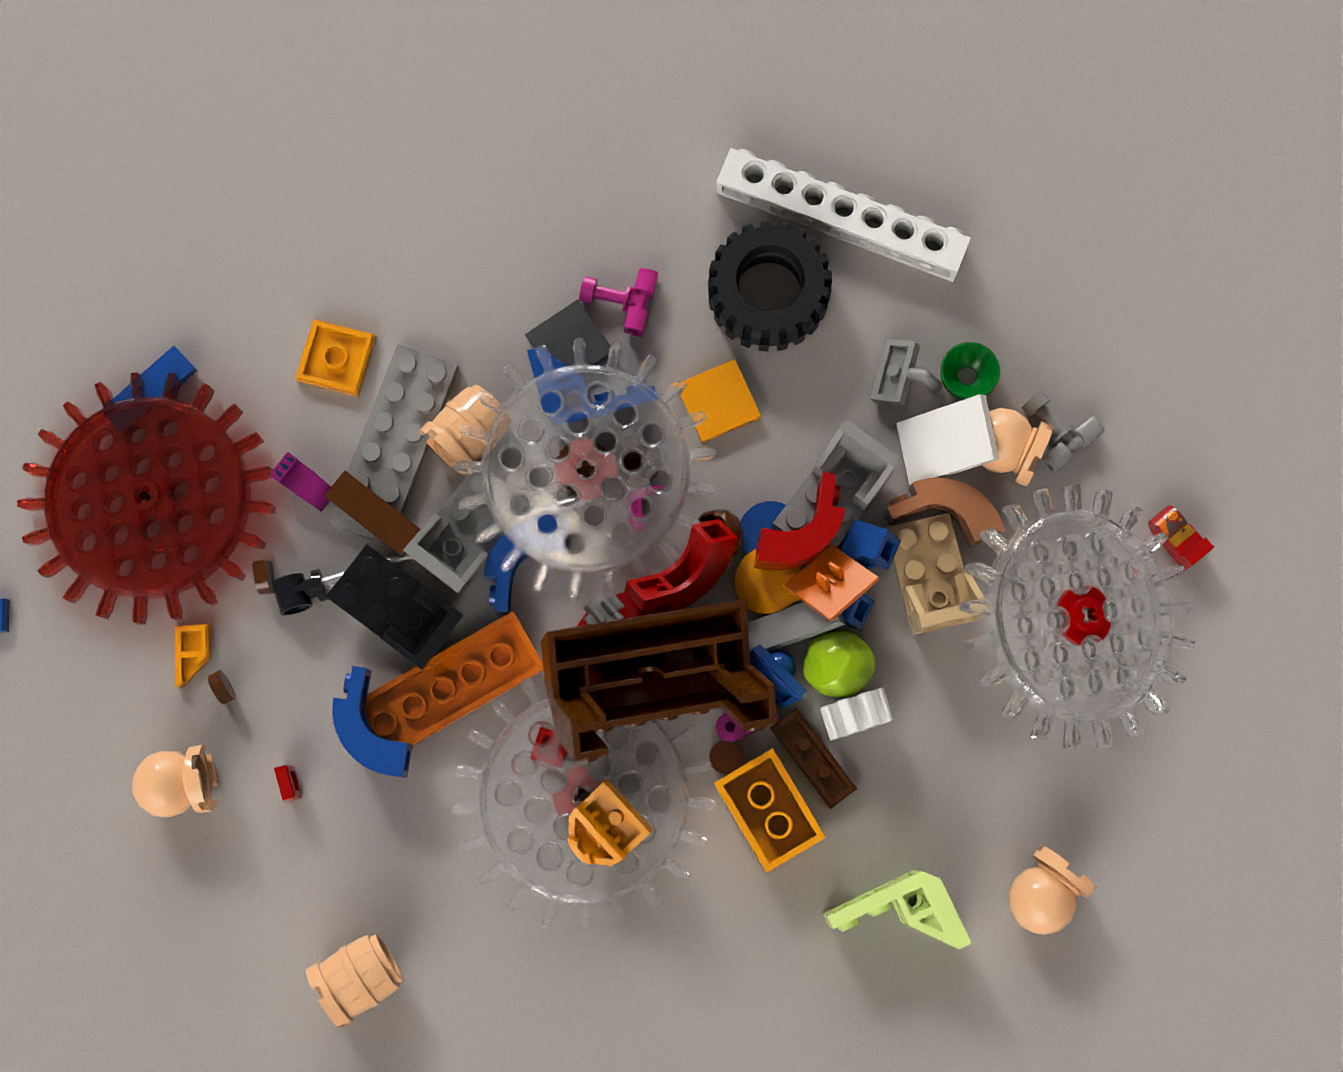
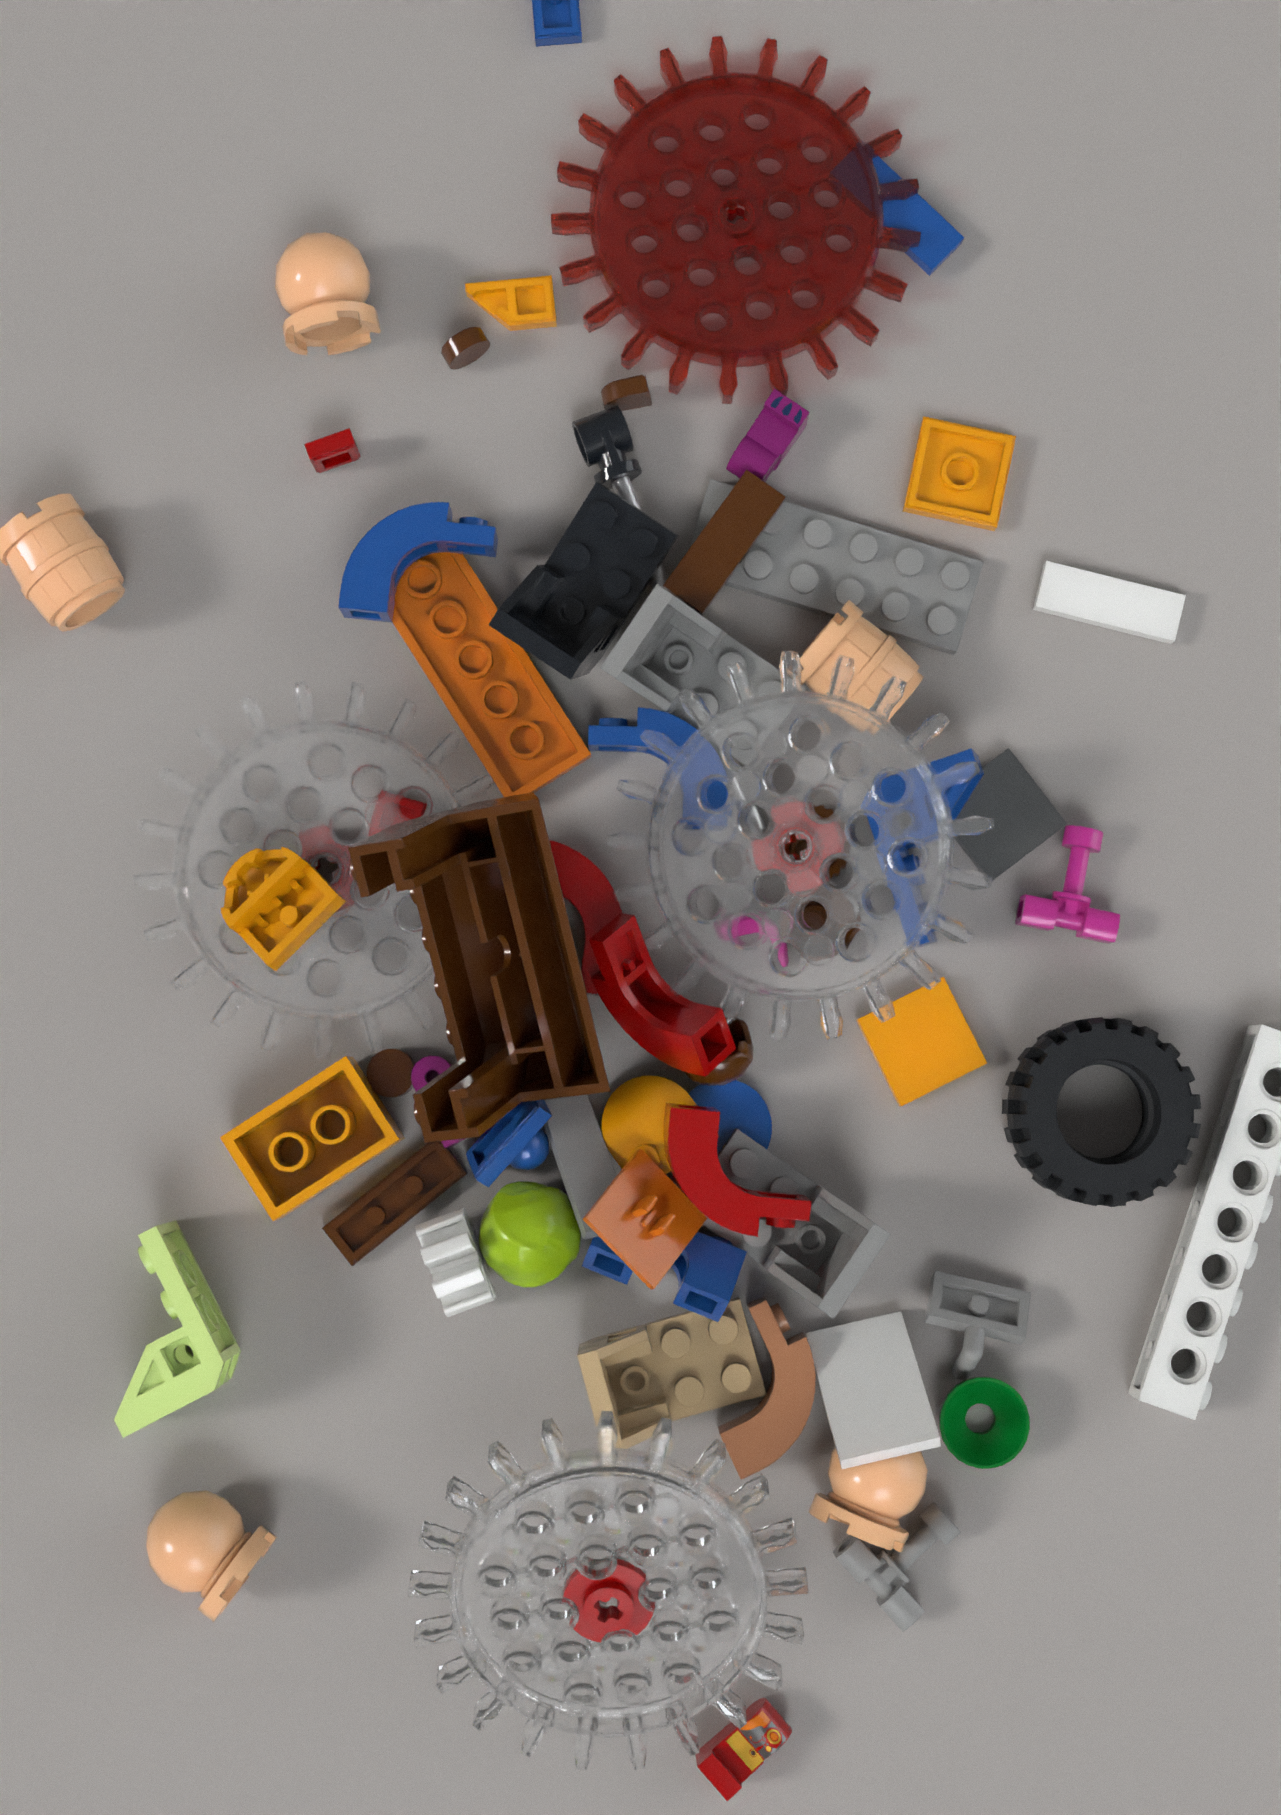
camera: 80 degrees right, 5 degrees up
(430, 265) = (1109, 602): none -> white tile
(603, 609) = (586, 884): light grey gear -> none

